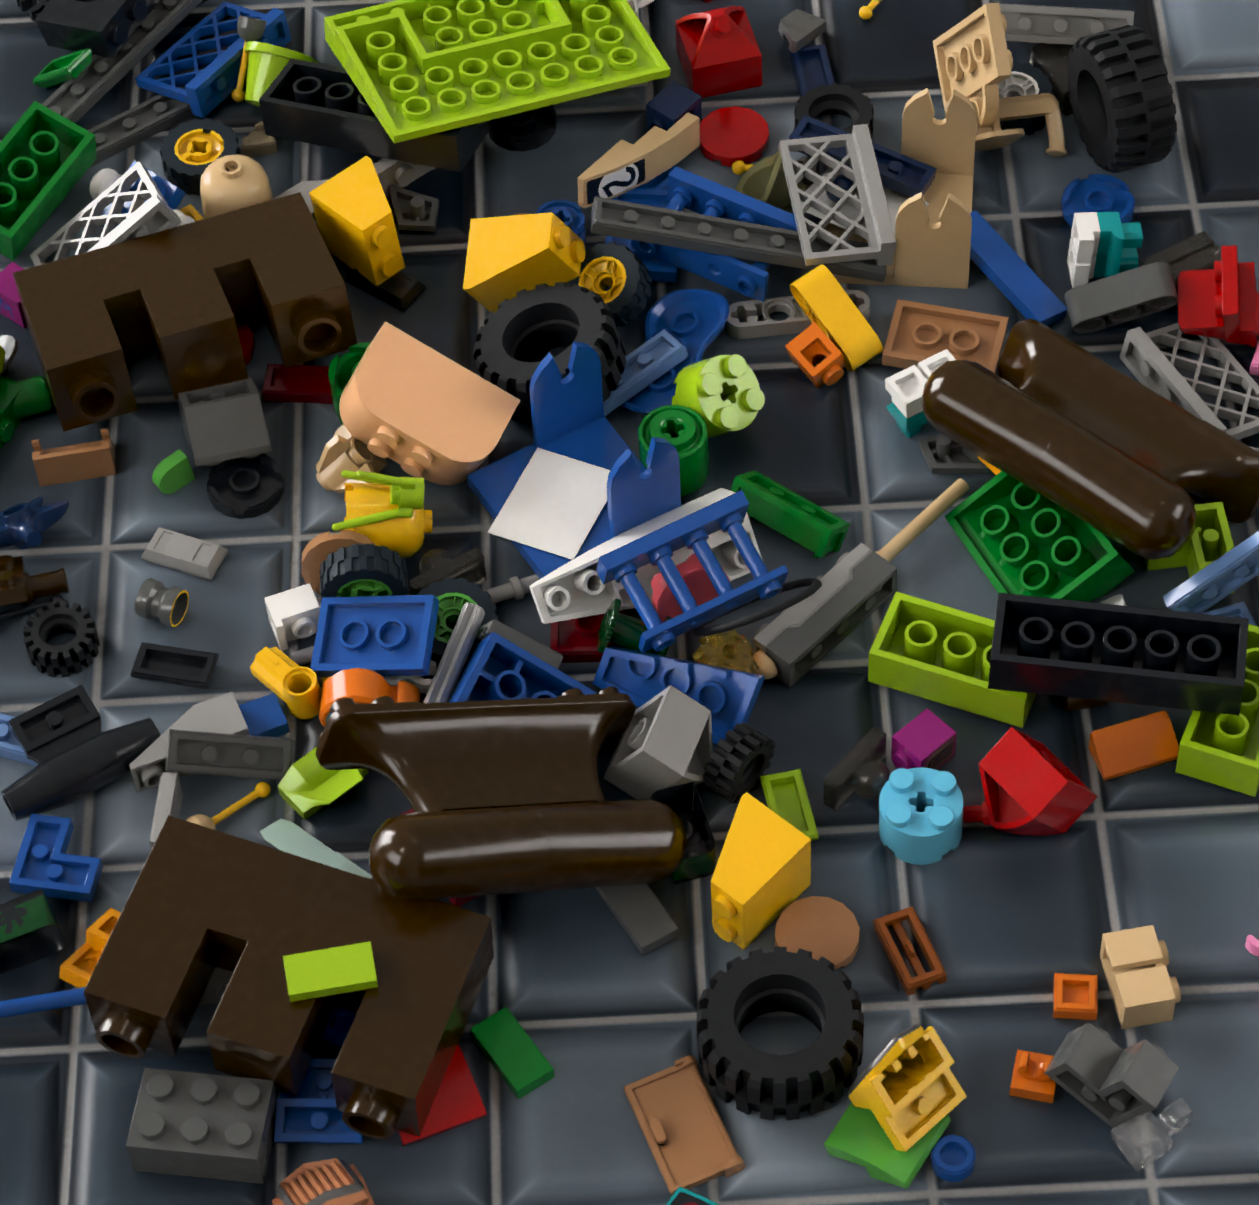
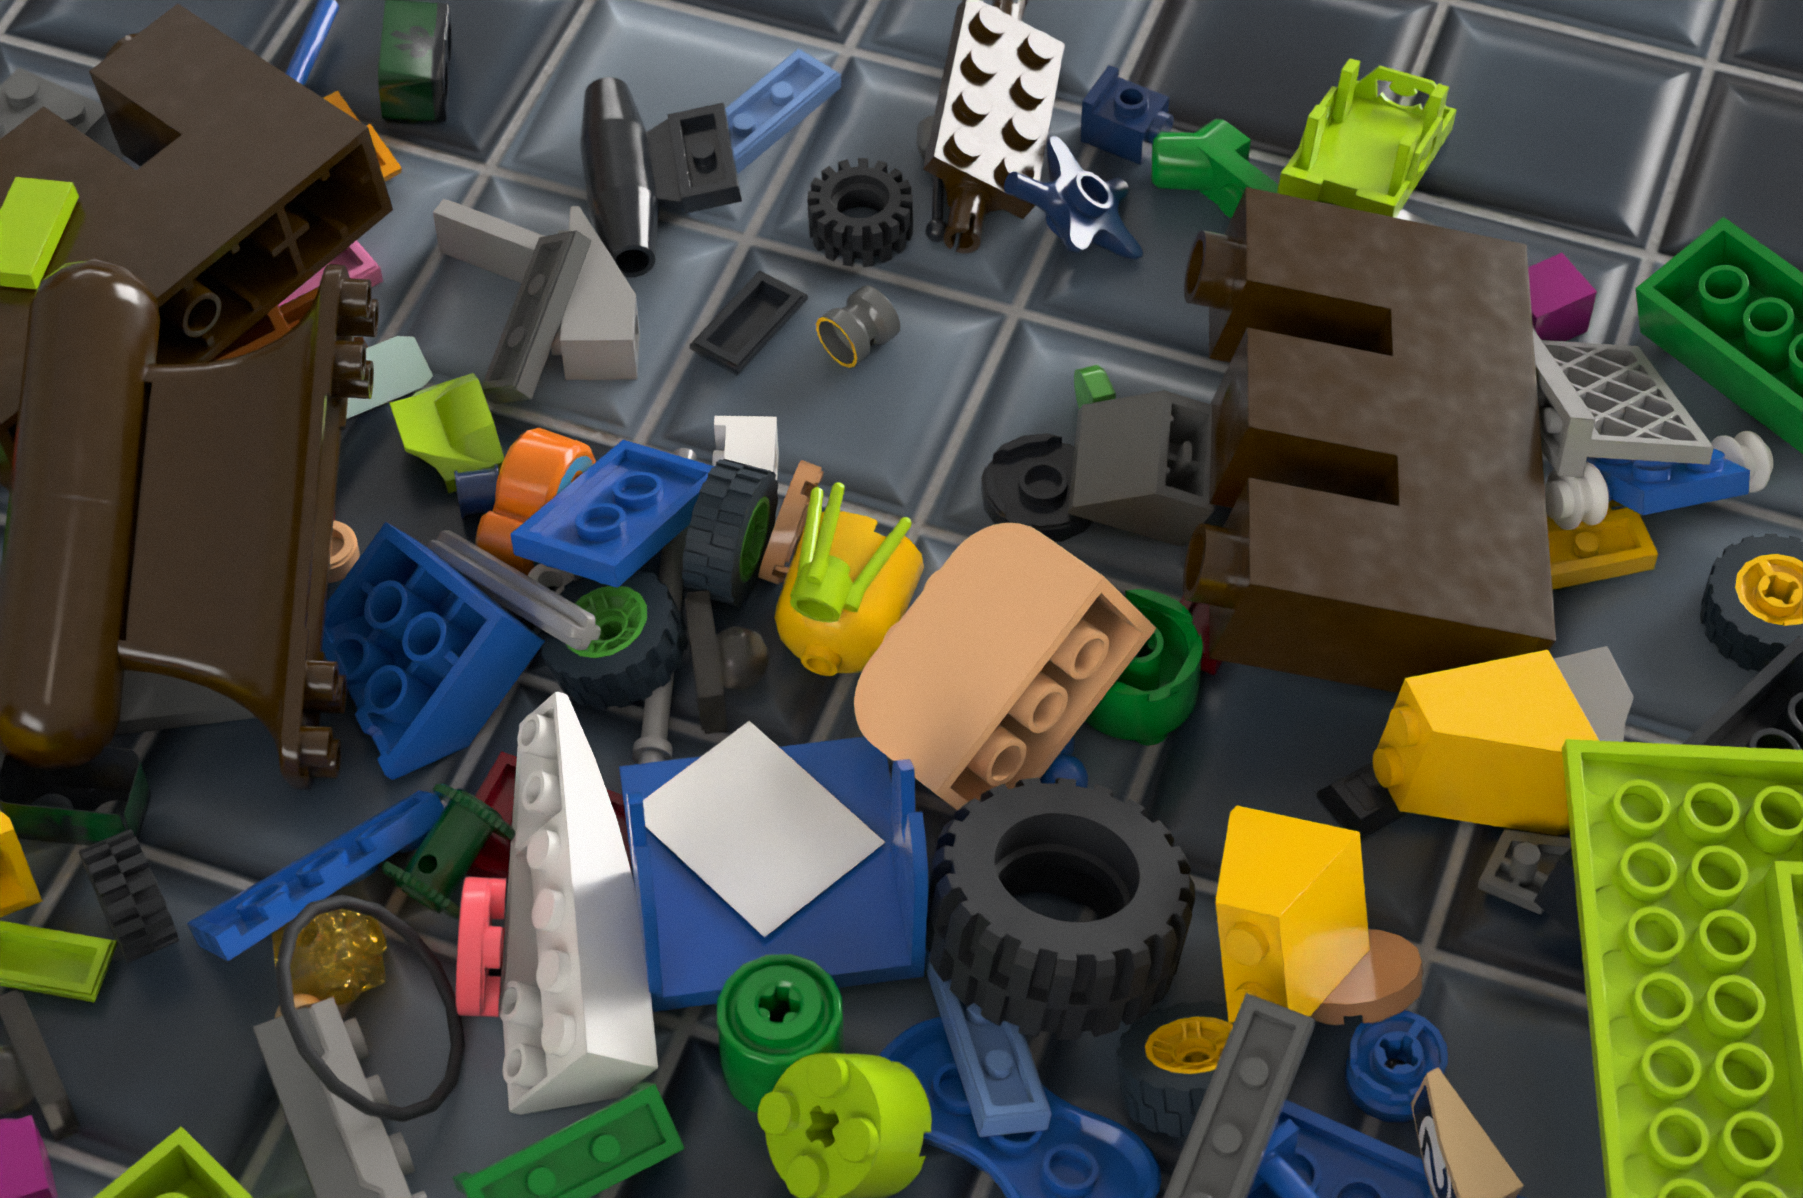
camera: 110 degrees right, 0 degrees up
(46, 866) = (499, 114): blue plate -> none
(74, 461) = (1178, 327): medium nougat hinge -> none
(184, 553) = (951, 388): light grey tile -> none
(233, 184) = (1634, 596): tan cylinder -> none
(261, 790) = (457, 278): yellow hinge -> none
(265, 717) = (602, 395): blue tile -> none
(289, 681) = (649, 421): yellow piece -> none
(528, 644) = (506, 688): dark grey tile -> none
(662, 745) = (204, 805): light grey piece -> none
(693, 533) = (510, 918): blue fence -> none

